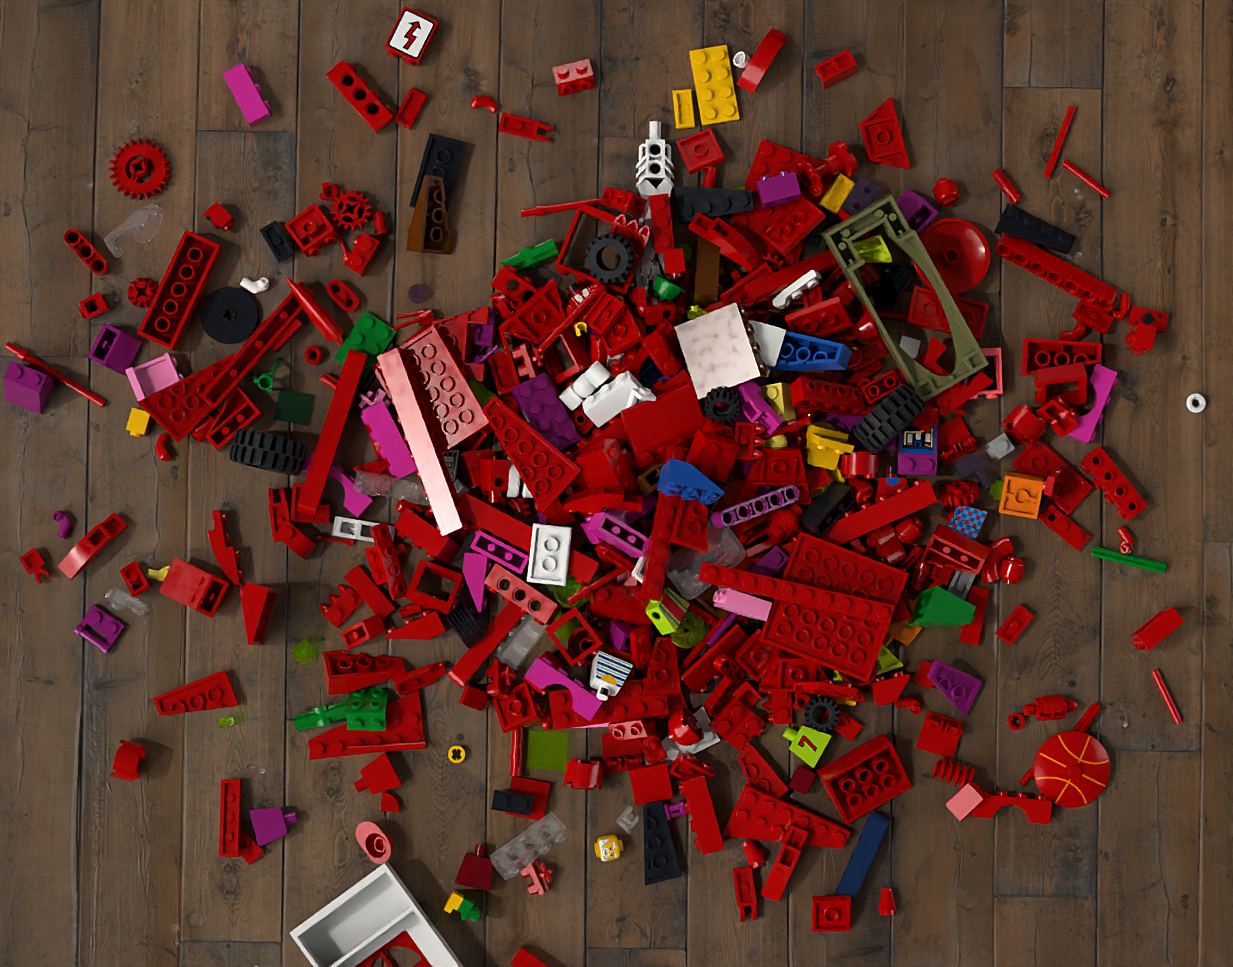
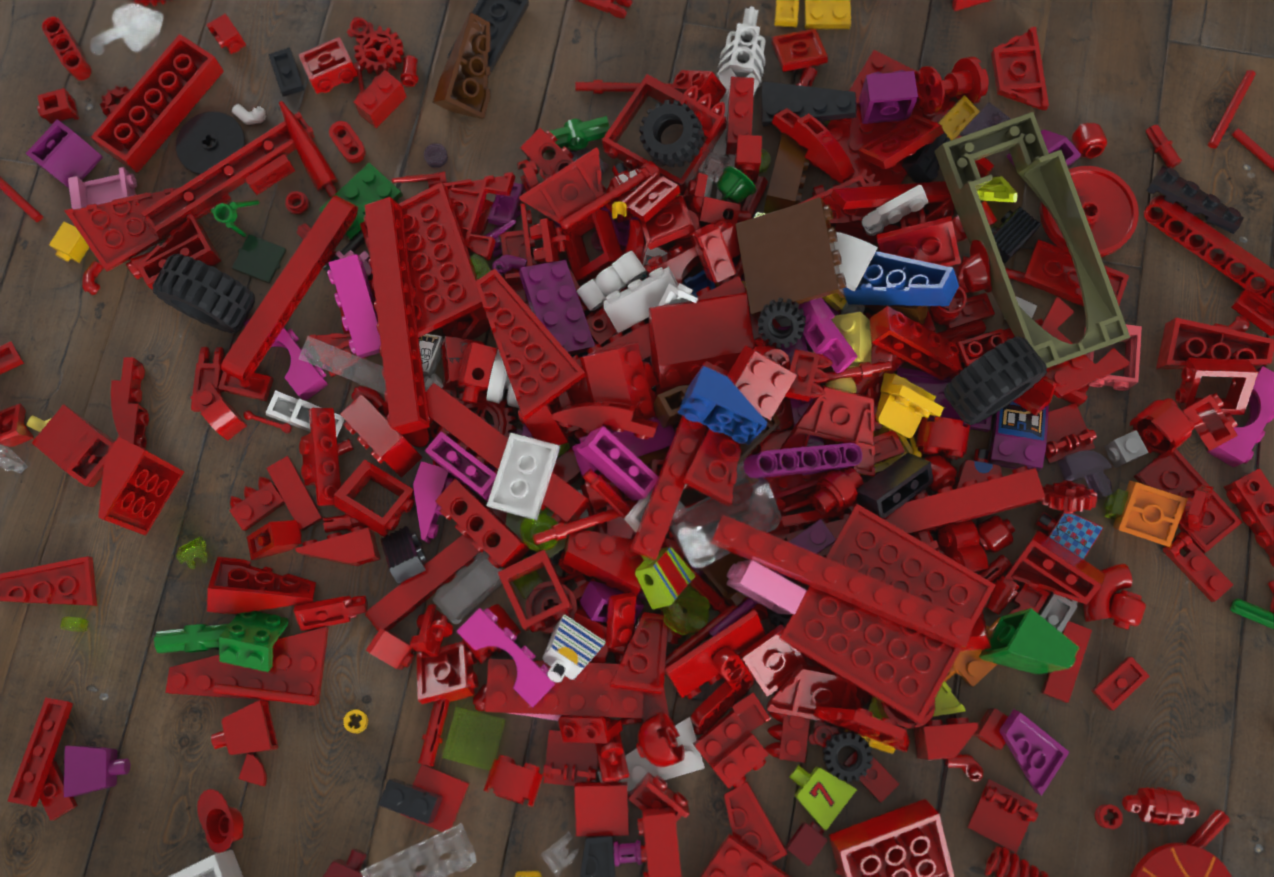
camera: 15 degrees right, 10 degrees down
(497, 380) = (507, 263): none -> magenta arm

